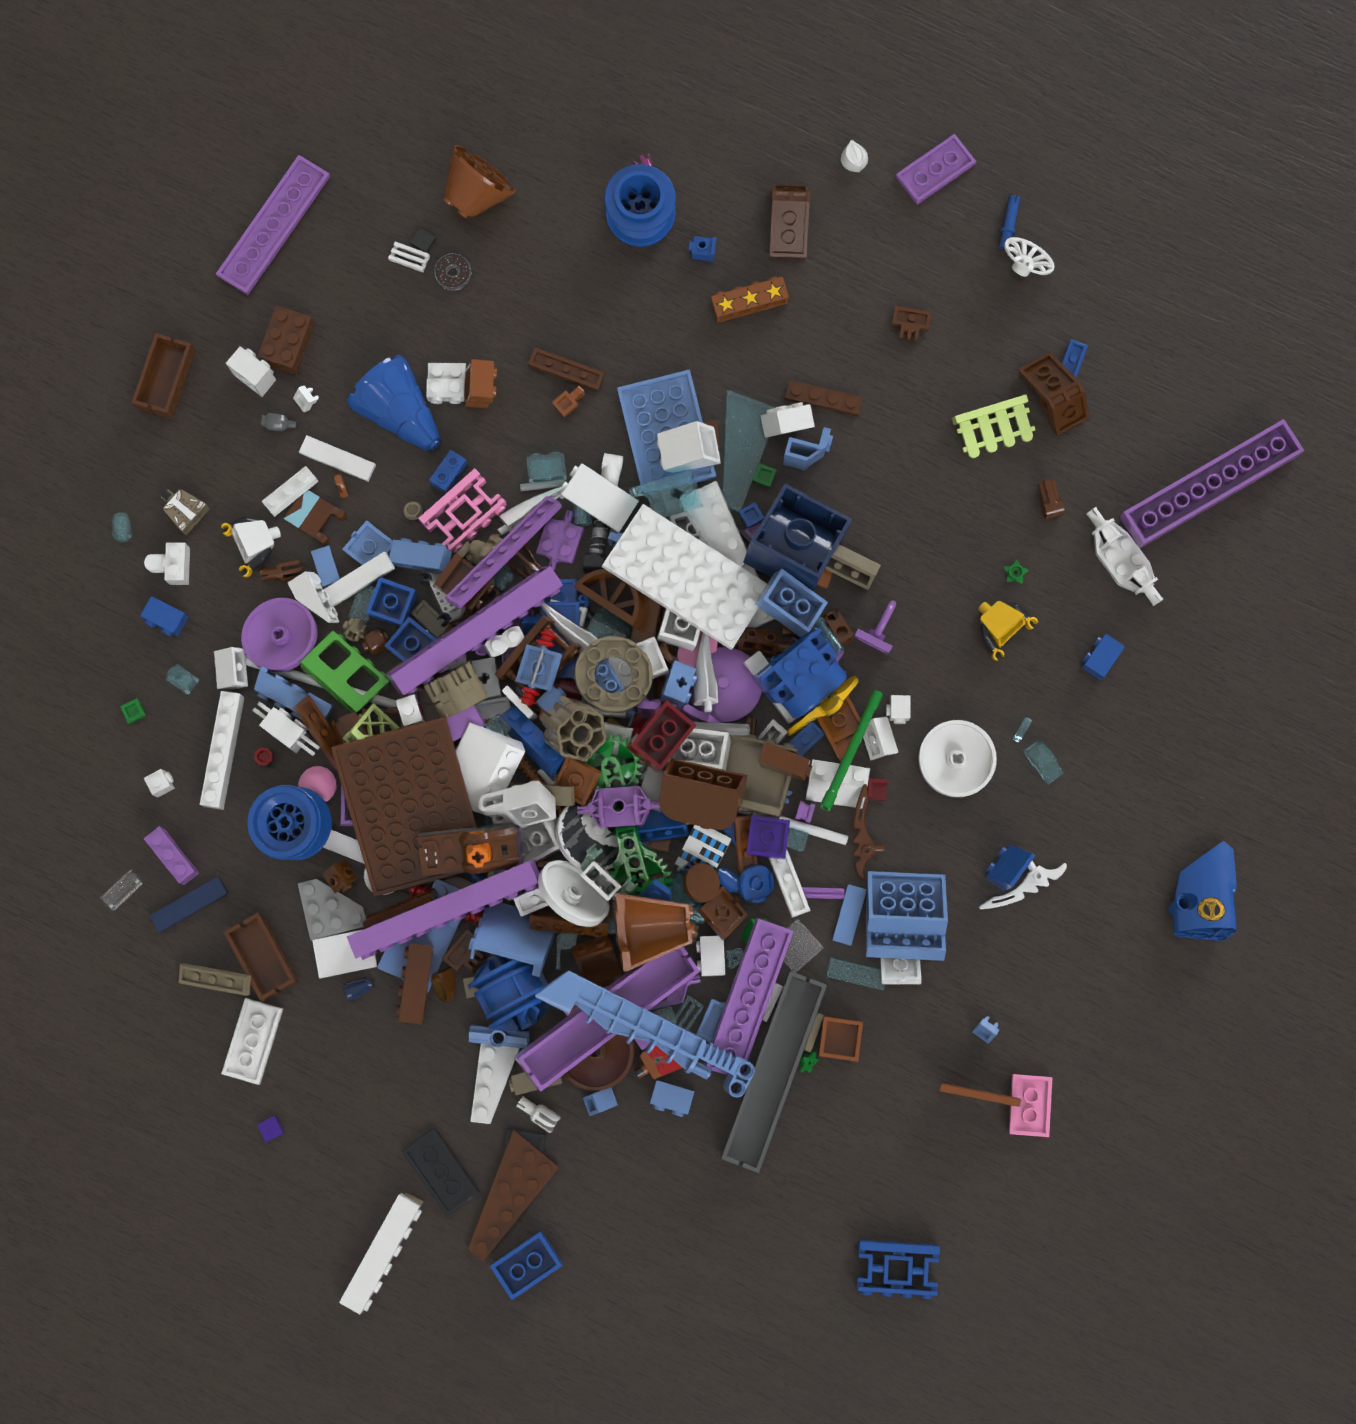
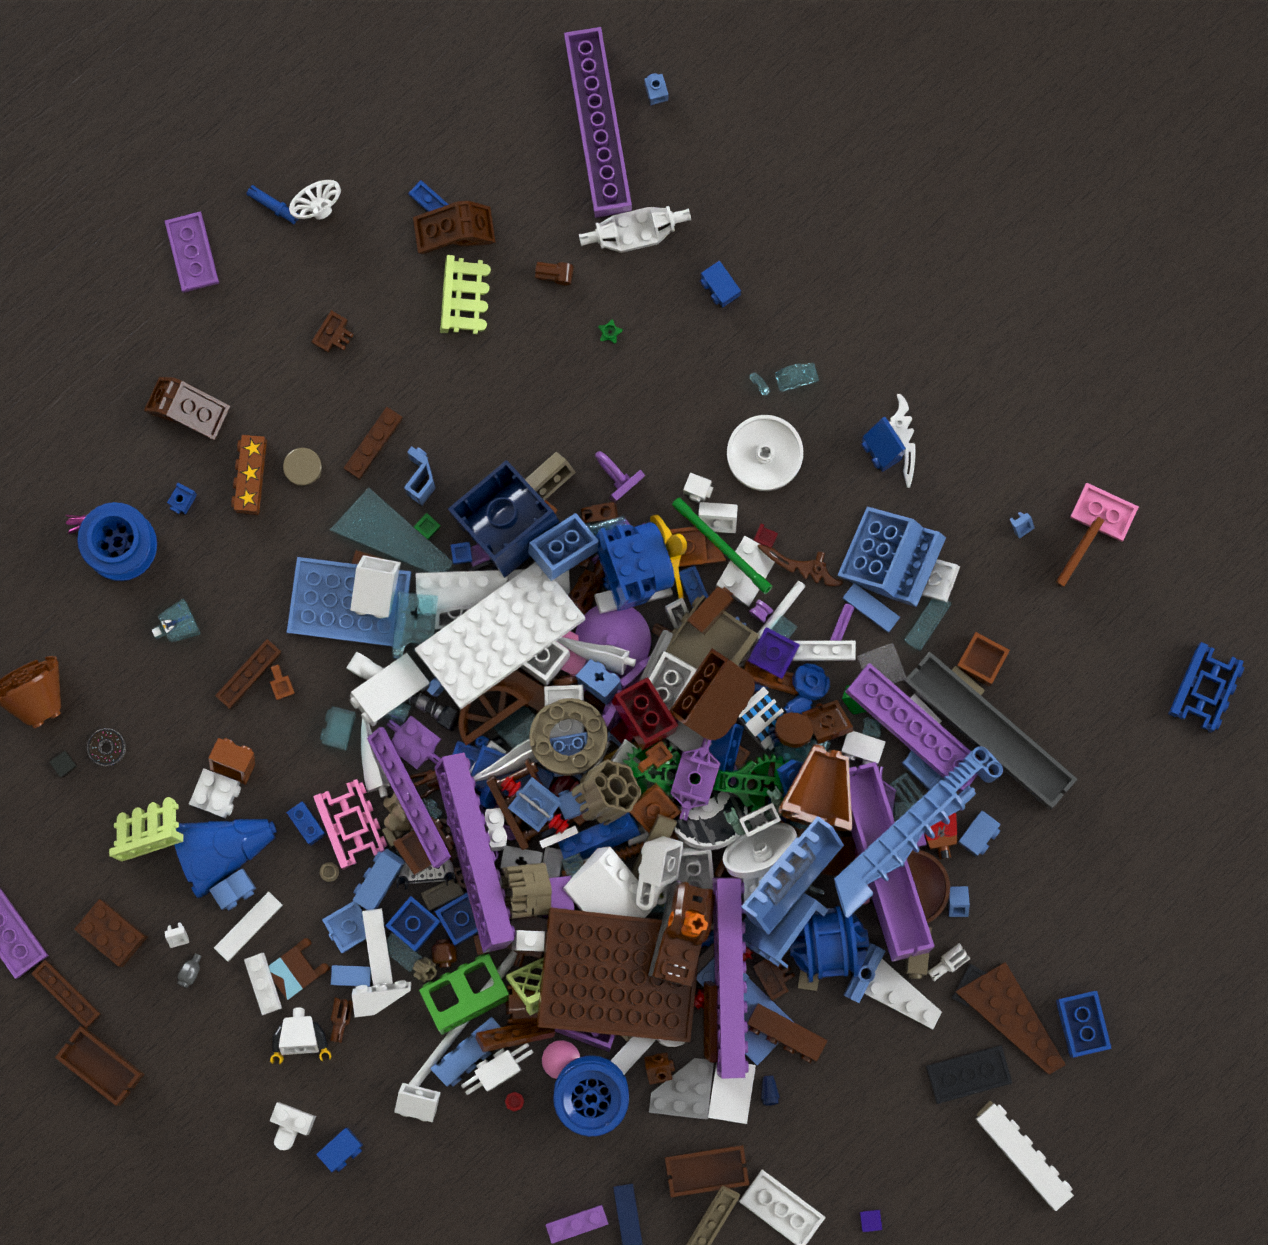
camera: 65 degrees left, 0 degrees up
(121, 527) = (234, 1161): clear light blue brick -> none
(133, 711) = (420, 1213): green tile -> none
(159, 782) = (501, 1210): white brick -> none
(182, 679) = (408, 1154): clear light blue brick -> none
(184, 509) = (240, 1093): dark tan torso -> none
(218, 323) = (66, 994): none -> reddish brown plate
(222, 750) = (493, 1139): white brick -> none
(251, 371) = (129, 977): white brick -> none
(279, 634) = (402, 1043): medium lavender dish -> none
(341, 486) = (278, 932): dark orange tile -> none
(364, 431) = (233, 889): none -> medium blue brick
(384, 342) = (147, 841): none -> yellowish green fence
(395, 251) = (63, 795): white tile -> none
(444, 984) = (796, 1006): reddish brown rock -> none
(542, 485) = (353, 738): light grey piece -> none
(557, 929) = (791, 875): none -> medium blue window
(588, 288) = (177, 623): none -> clear light blue torso
(625, 763) = (656, 756): none -> dark orange plate
(775, 343) = (302, 467): none -> dark tan tile
(787, 419) = (385, 484): white brick -> none
(808, 1061) = (991, 696): green plate -> none
(854, 157) = (148, 323): white hat -> none
(1001, 623) = (654, 364): yellow torso -> none
(1206, 897) = (975, 280): blue panel -> none
(1266, 526) = (656, 88): none -> medium blue brick

